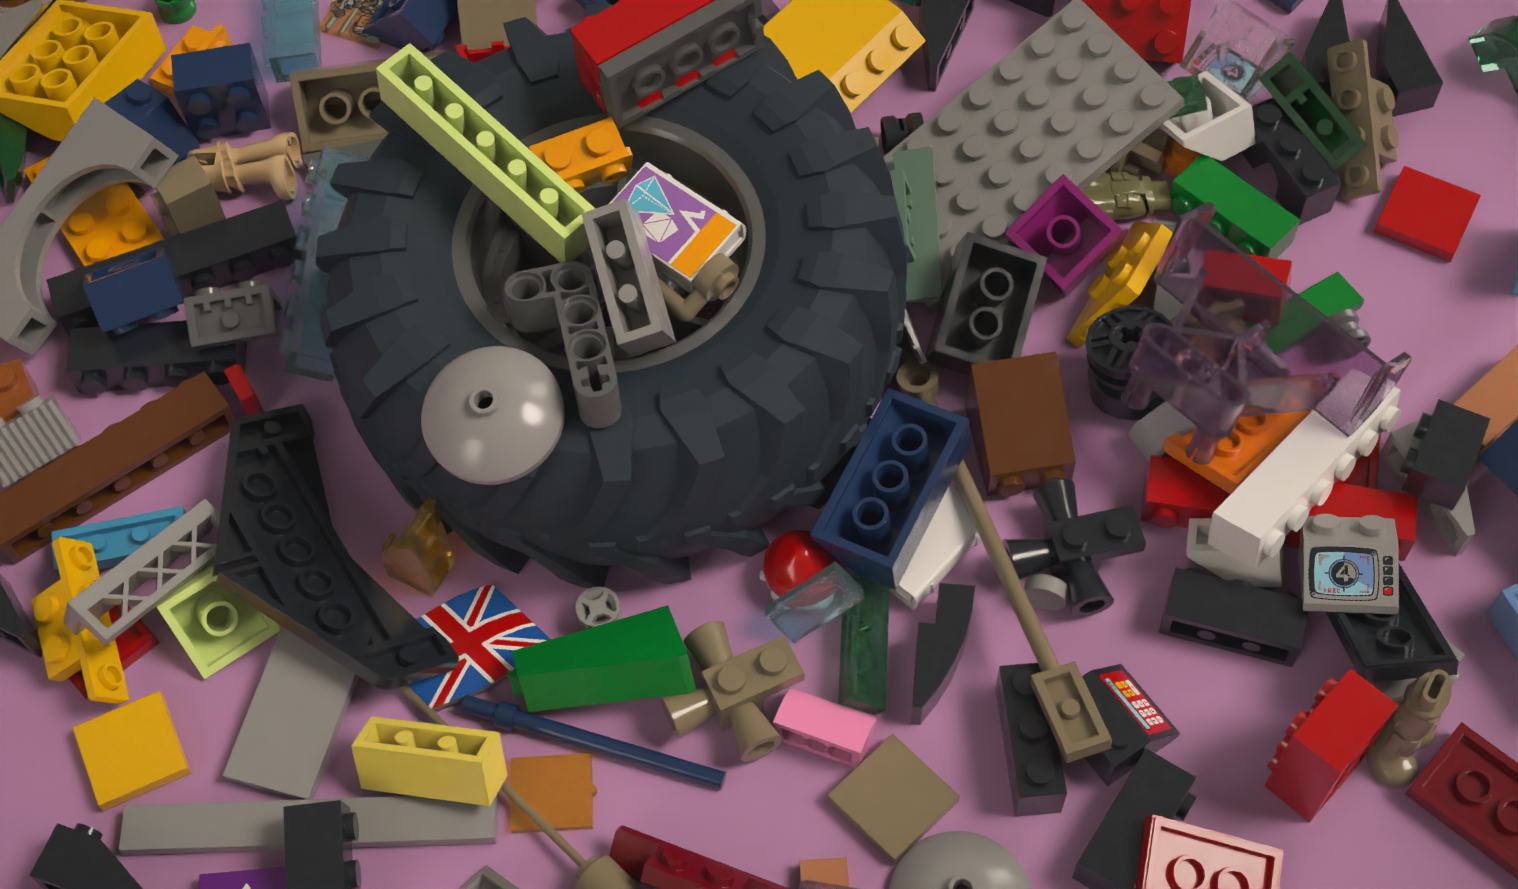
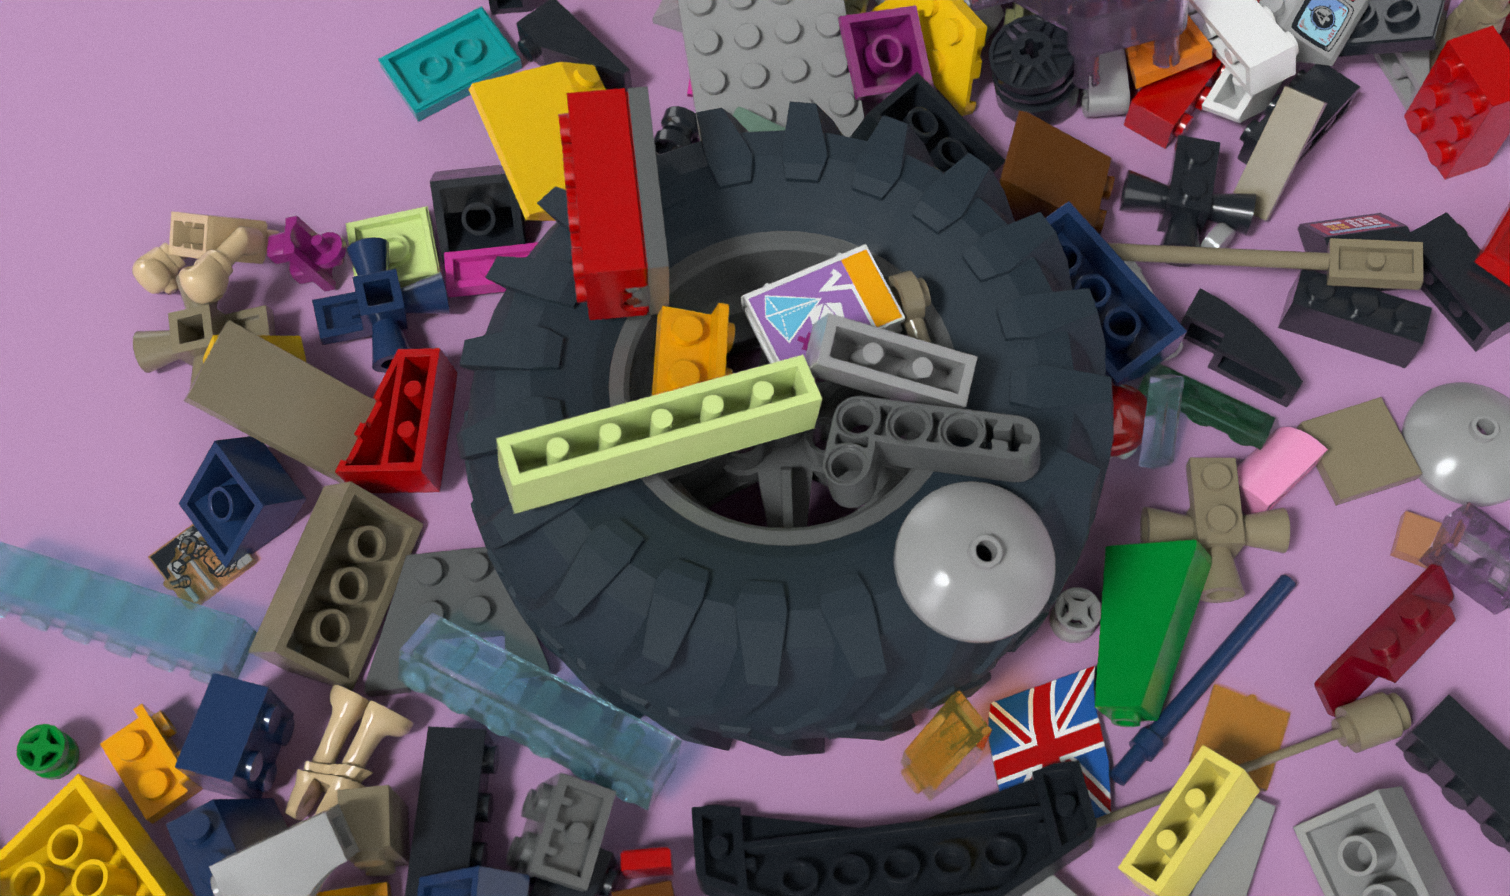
camera: 65 degrees left, 5 degrees up
(1166, 595) = (1280, 149): none -> tile

